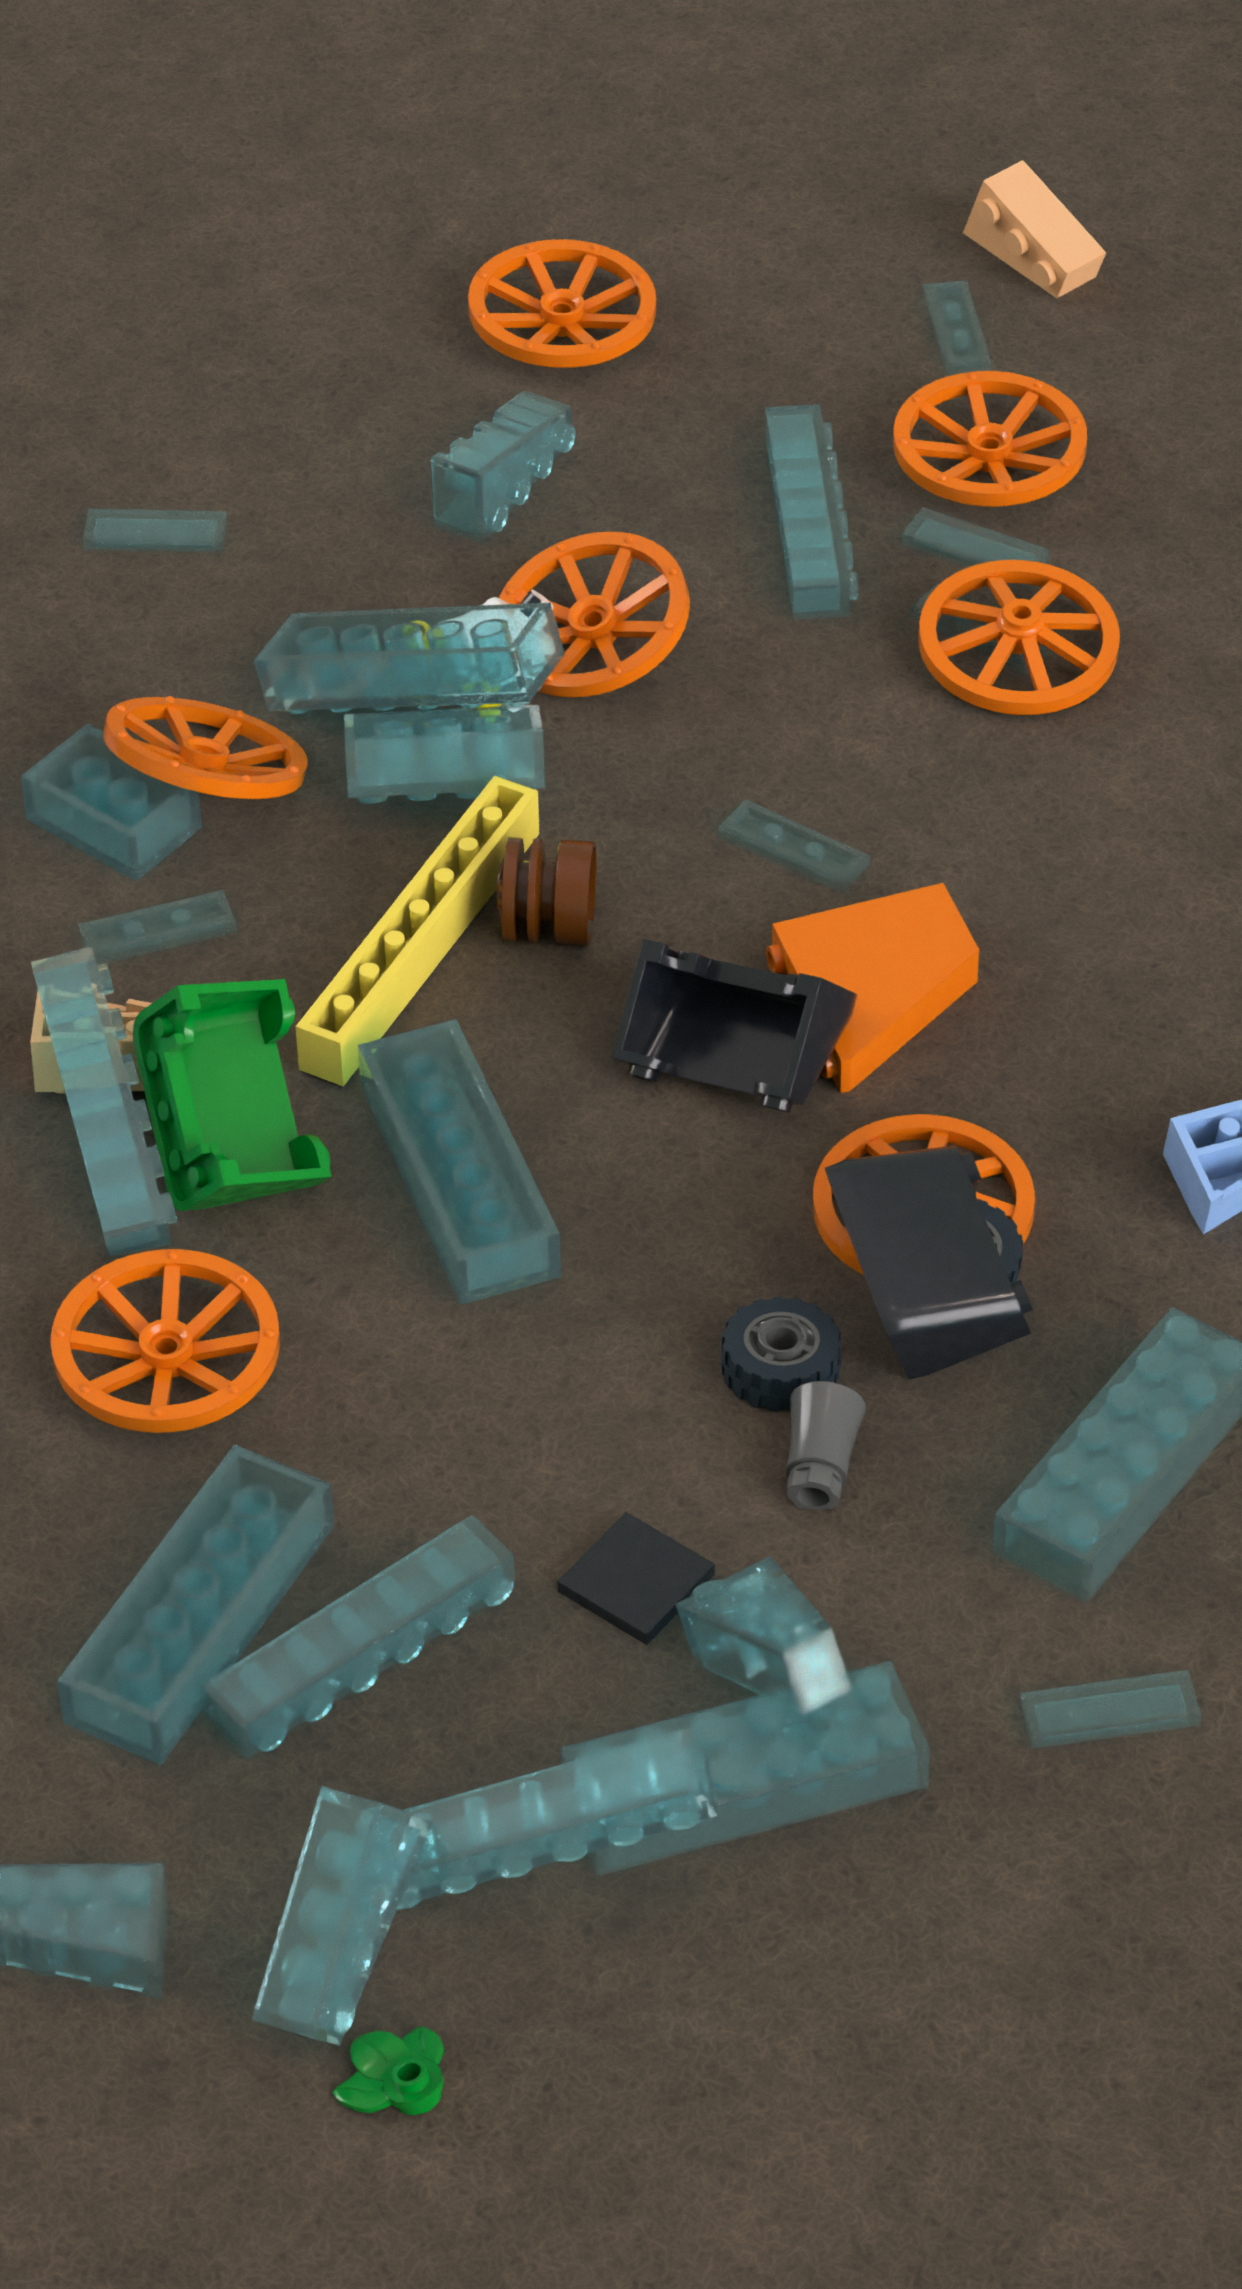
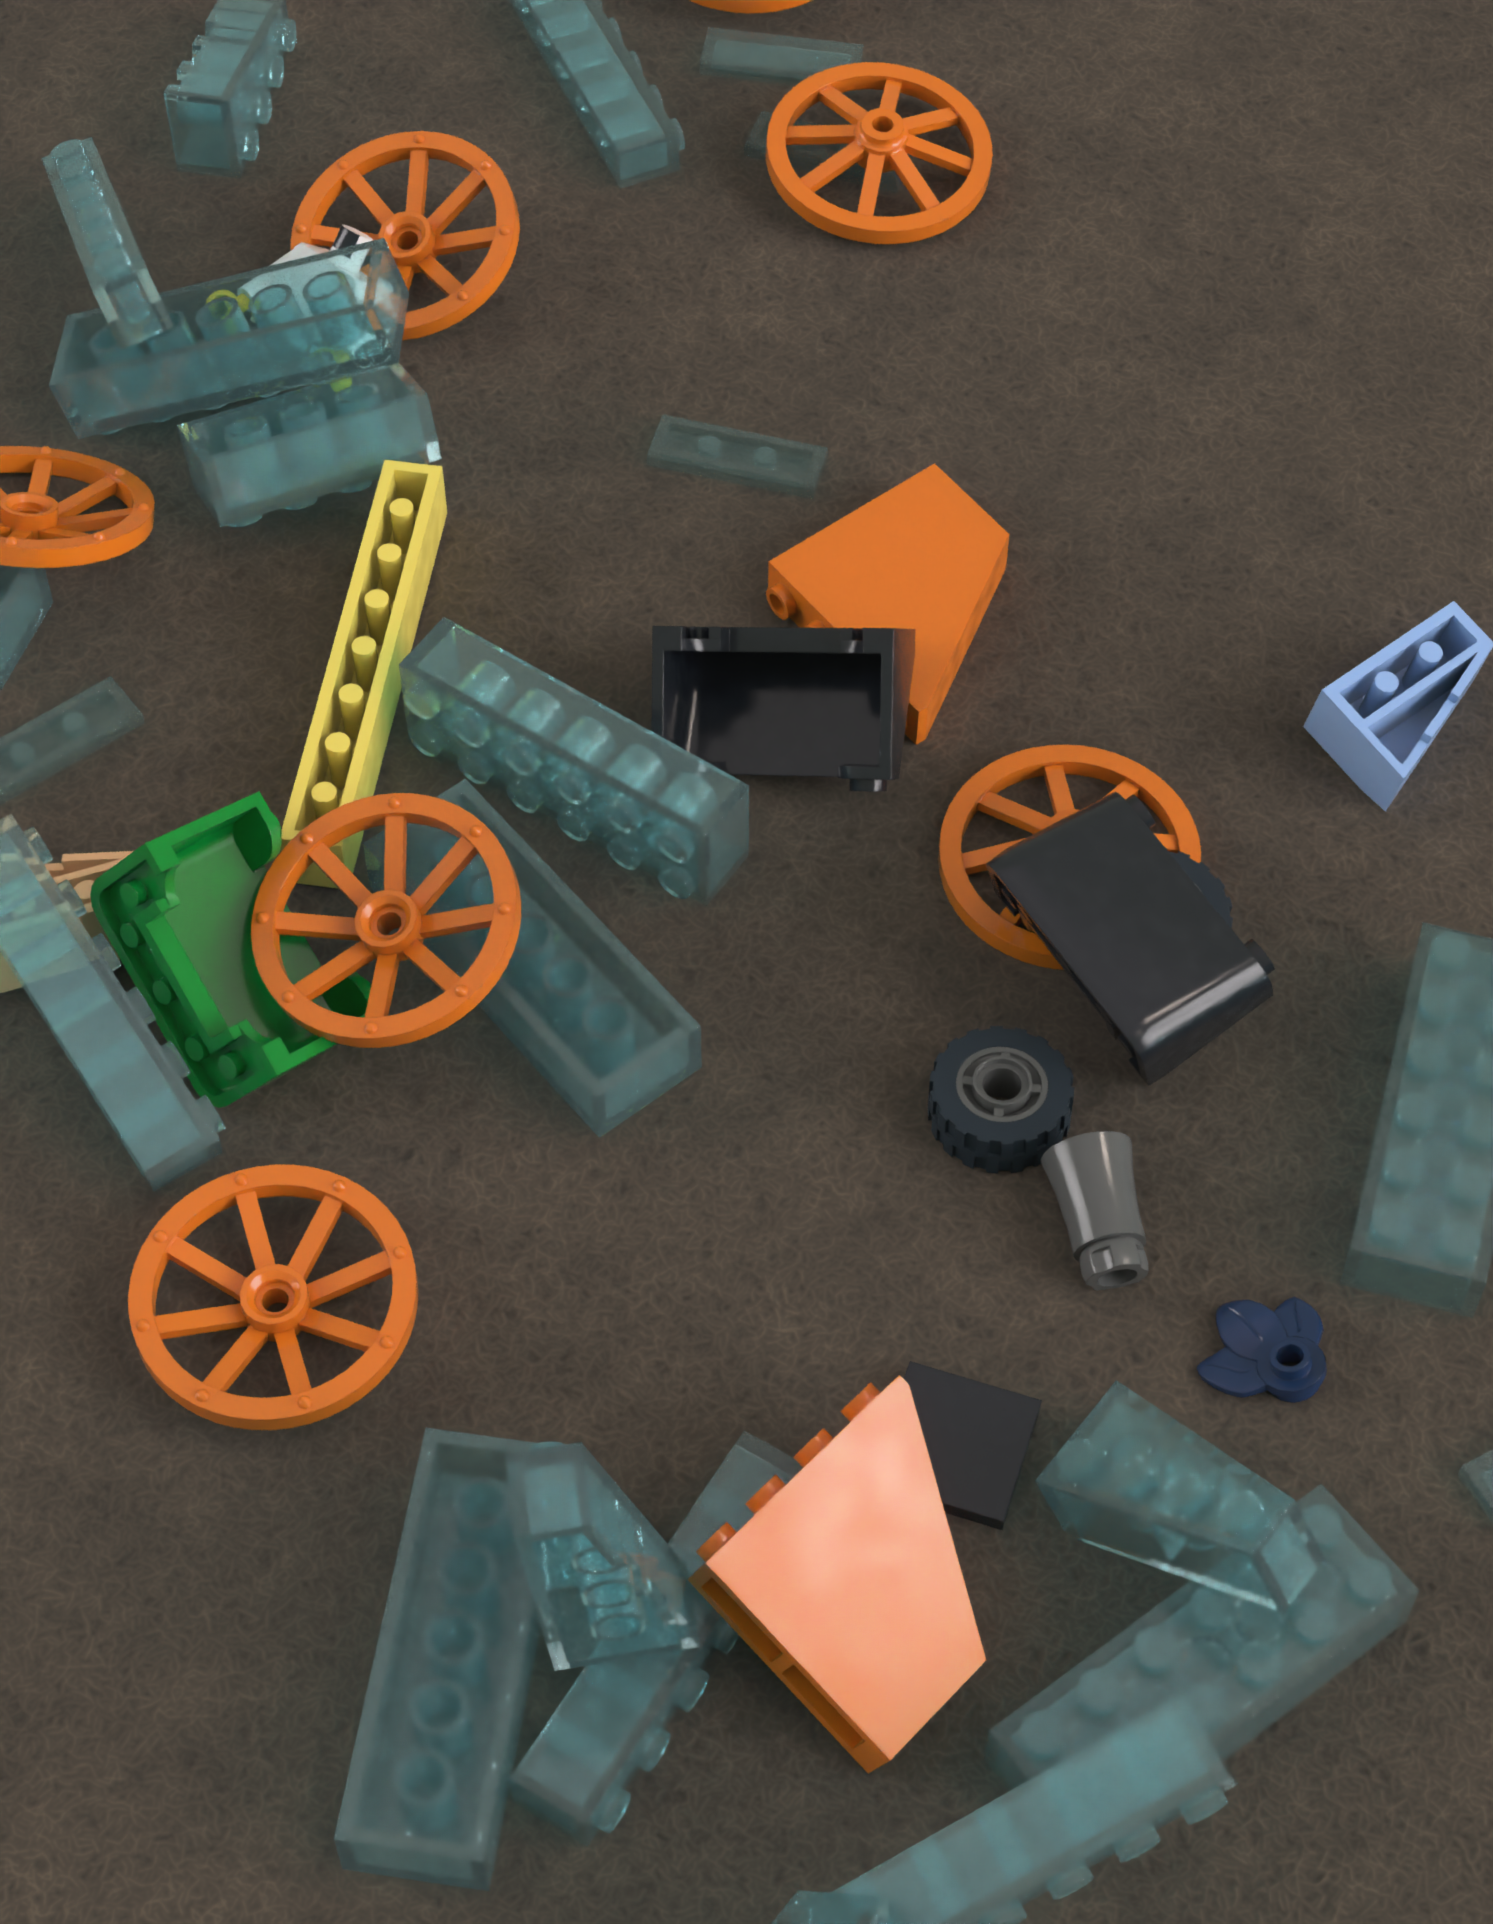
camera: 20 degrees left, 10 degrees up
(303, 1539) = (594, 1561): none -> clear light blue wedge
(341, 562) = (106, 243): none -> clear light blue brick
(352, 1104) = (382, 913): none -> orange wheel
(504, 1627) = (852, 1580): none -> slope
(548, 891) = (502, 584): reddish brown wheel -> none
(551, 1032) = (575, 762): none -> clear light blue brick
(909, 1578) = (1258, 1345): none -> dark blue plate

